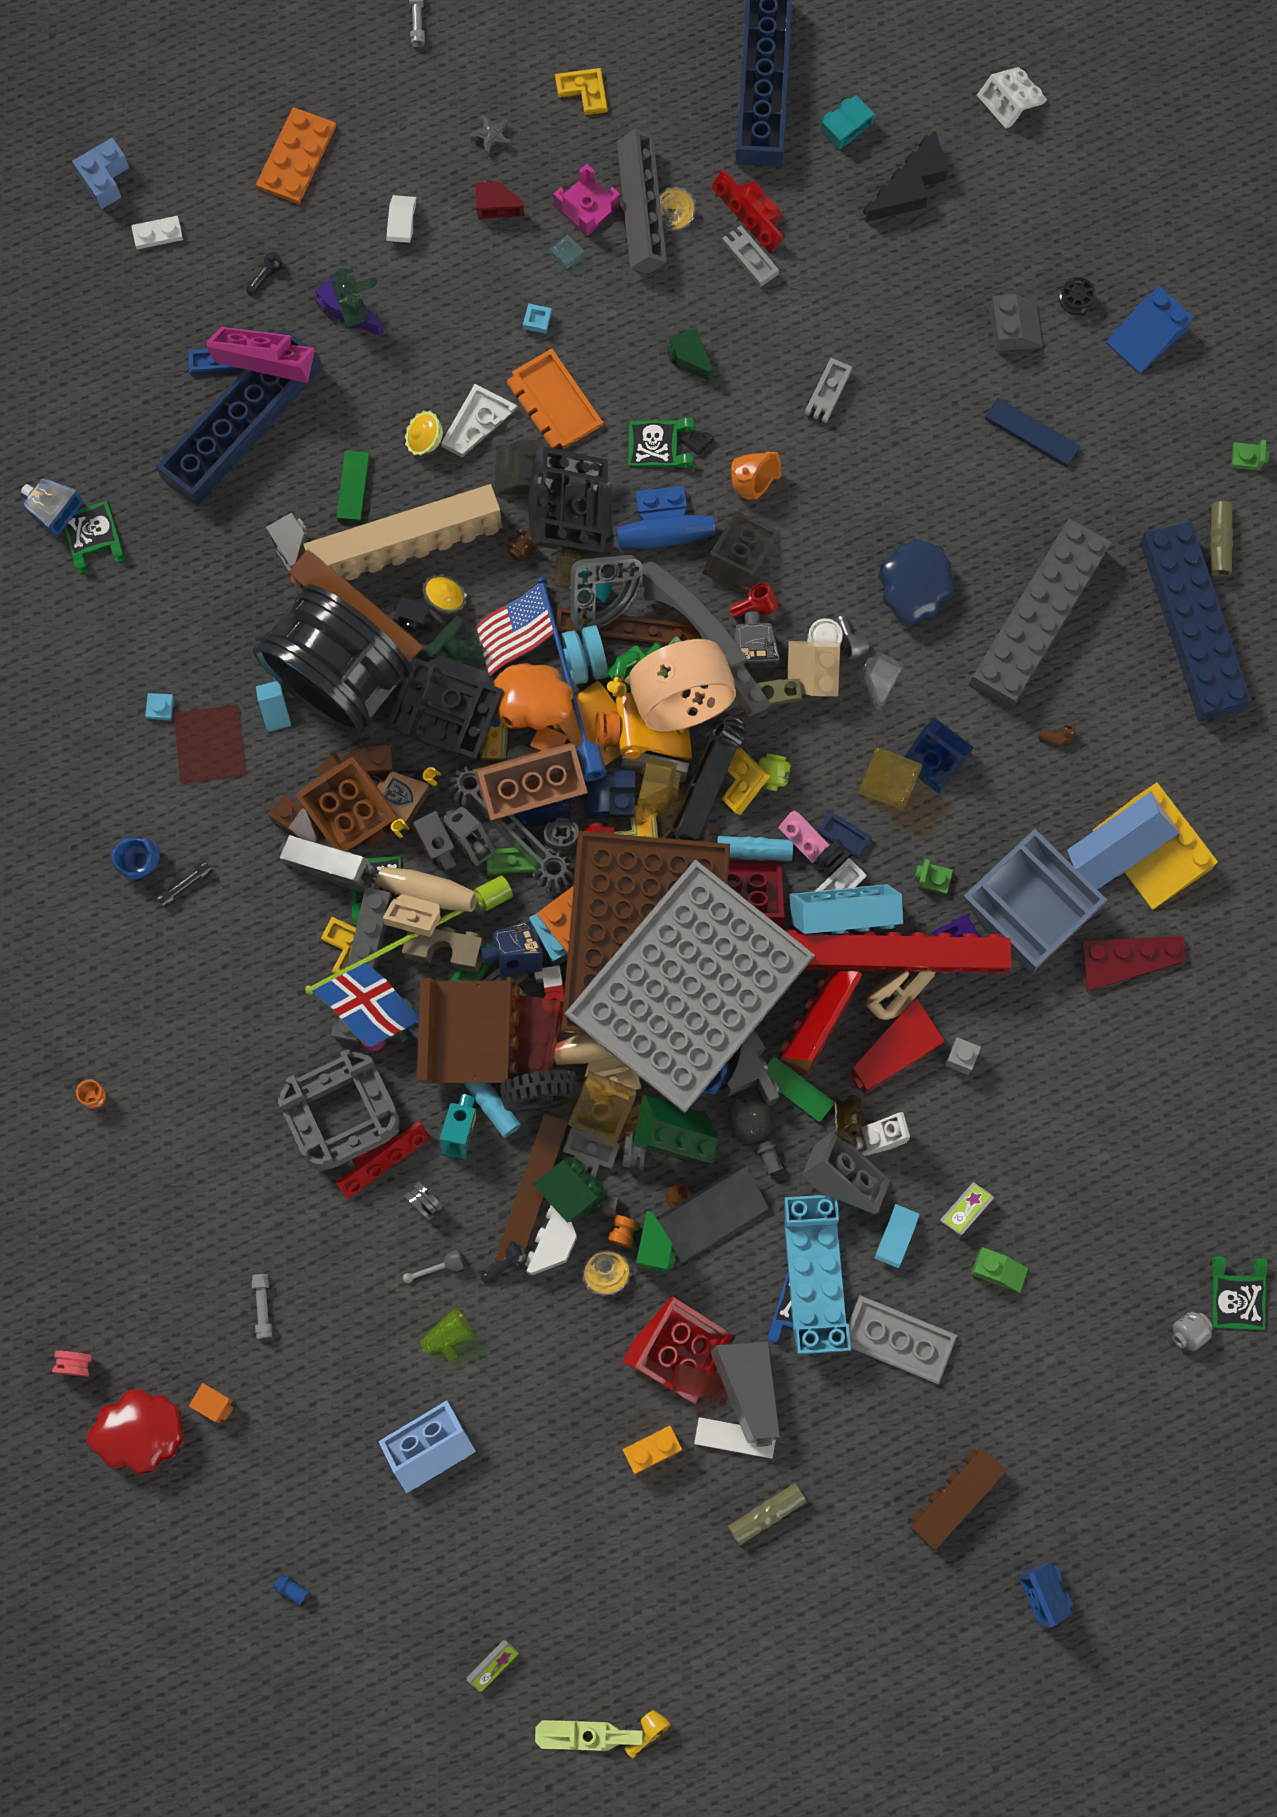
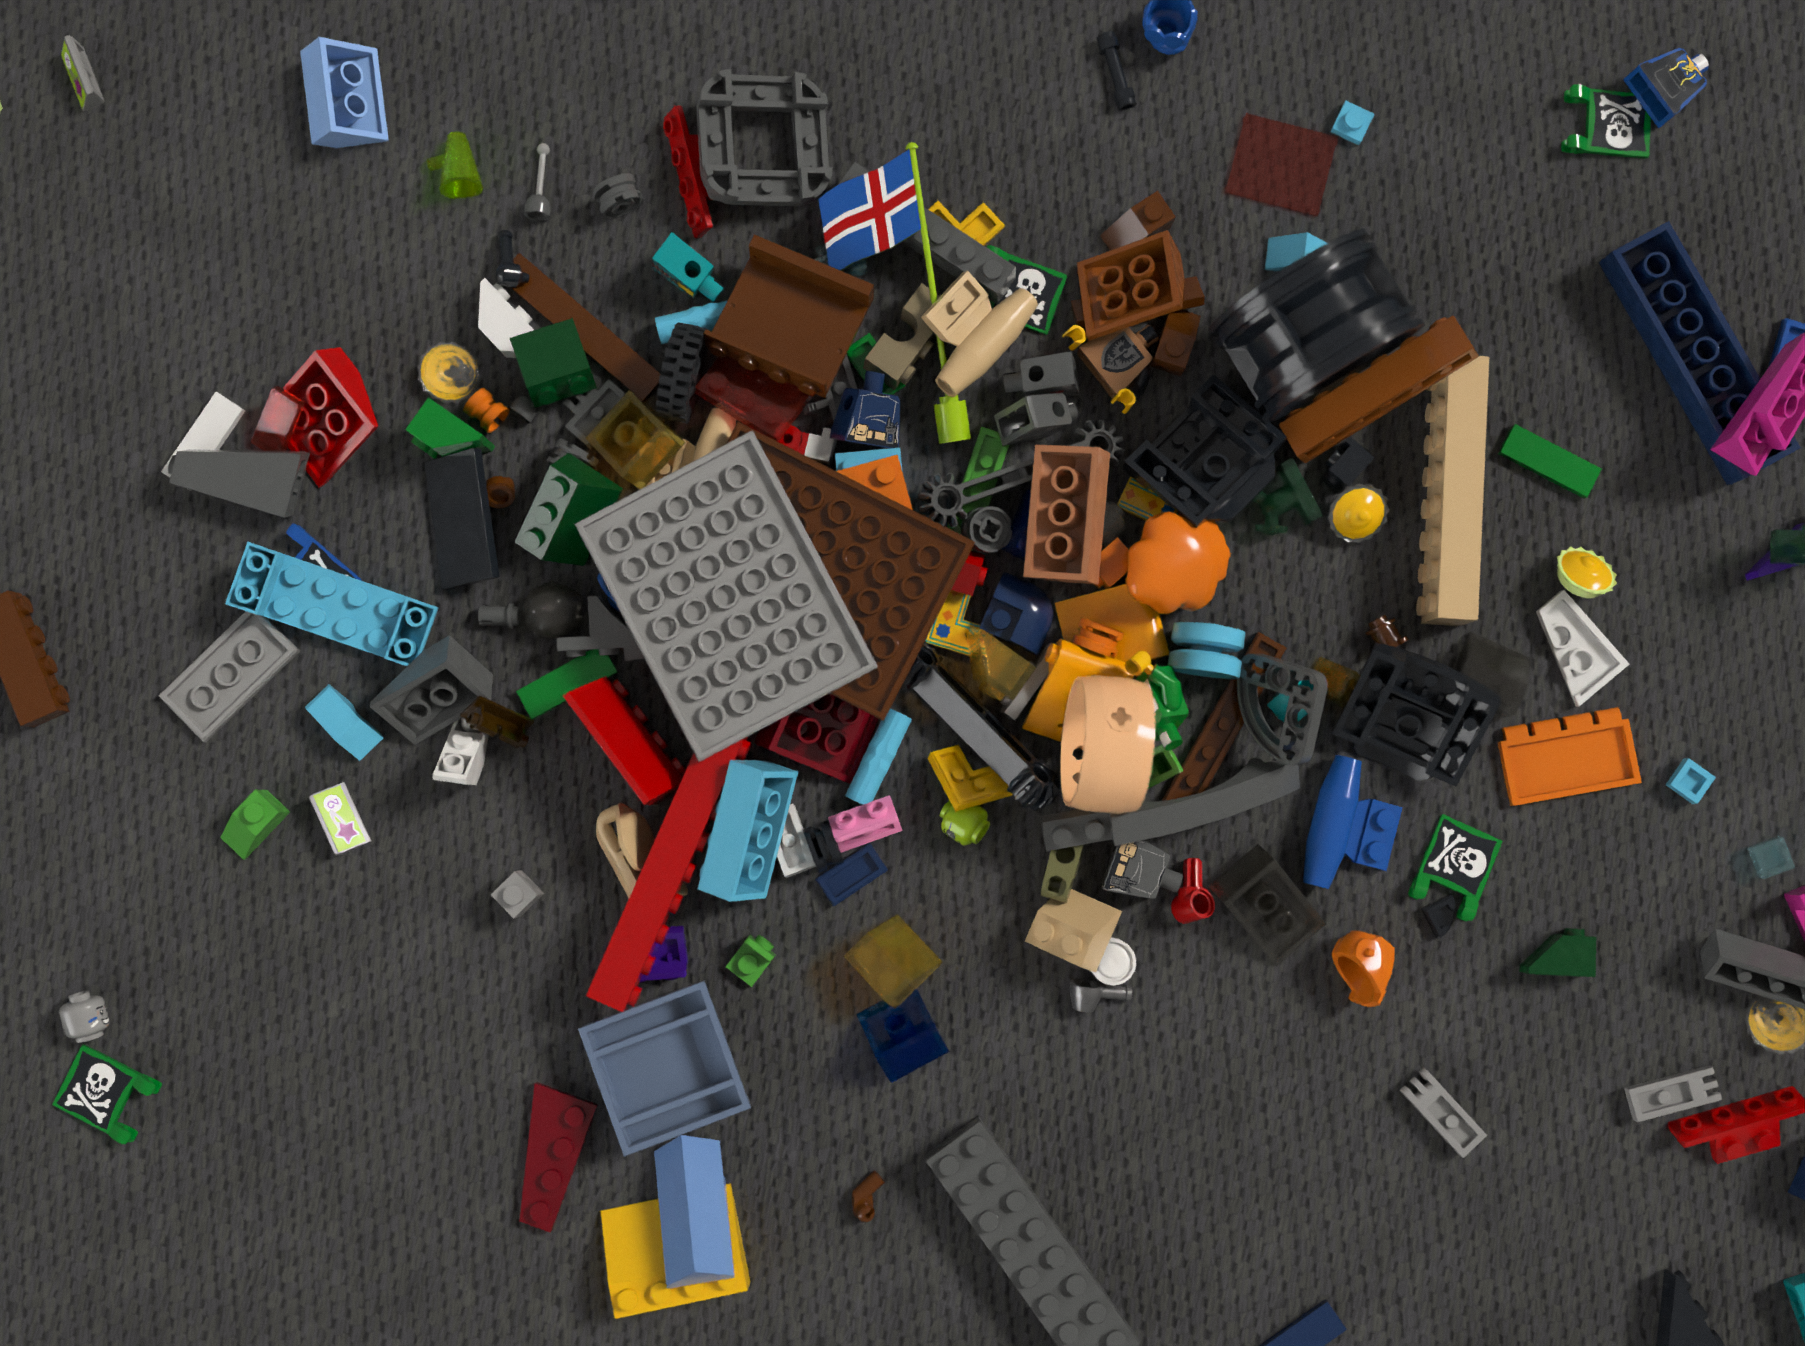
camera: 115 degrees right, 10 degrees up
(288, 539) = (1507, 346): light grey slope -> none
(328, 863) = (1067, 240): slope -> none
(520, 630) = (1274, 586): flag -> none
(652, 1450) = (226, 339): light orange brick -> none
(767, 1514) = (102, 439): olive axle -> none
(881, 677) = (1029, 1007): clear slope -> none
(901, 1045) = (560, 821): red slope -> none
(916, 581) = (1136, 1108): dark blue piece -> none

